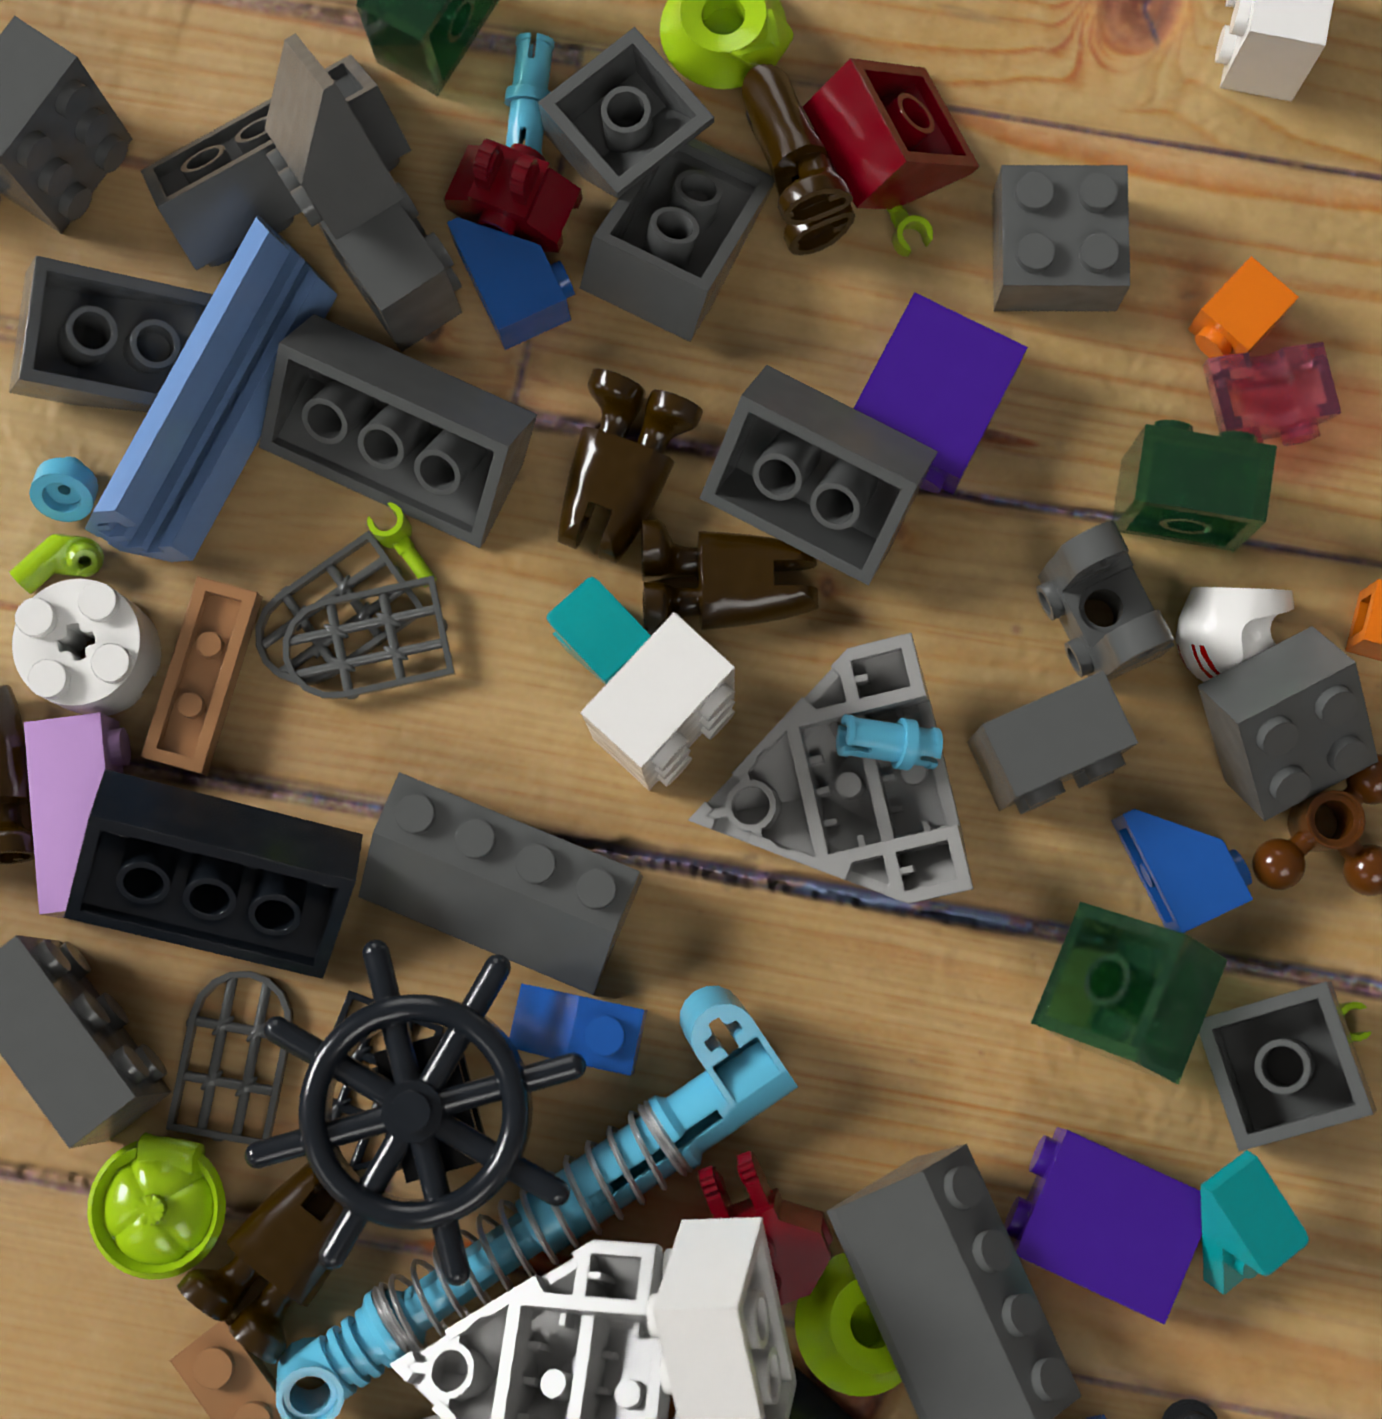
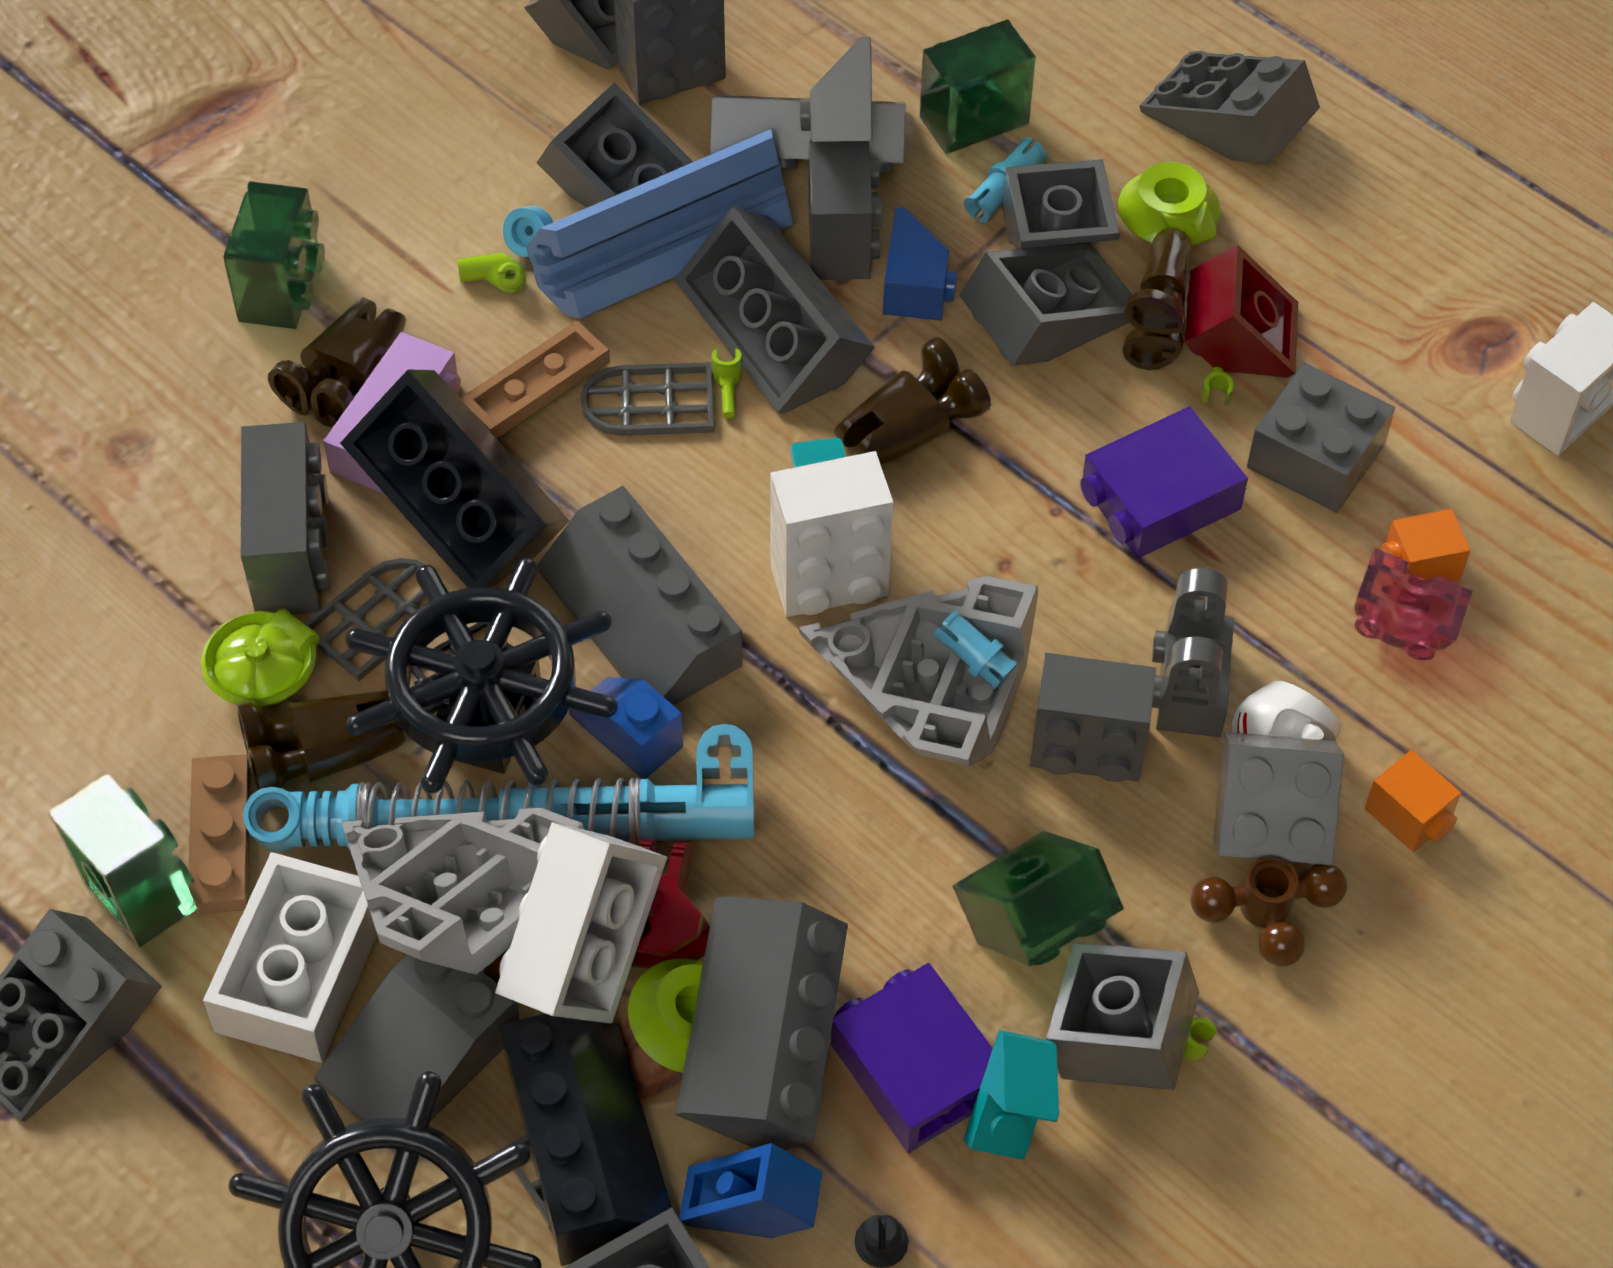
camera: 25 degrees right, 25 degrees down
(55, 630) = (476, 316): white brick -> none
(392, 651) = (673, 437): dark grey window -> none
(513, 193) = (955, 214): dark red hinge -> none
(732, 575) = (940, 512): dark brown piece -> none
(817, 474) = (1042, 471): dark grey brick -> none
(1183, 870) = (1142, 862): blue slope -> none
(1194, 485) = (1308, 621): clear green brick -> none

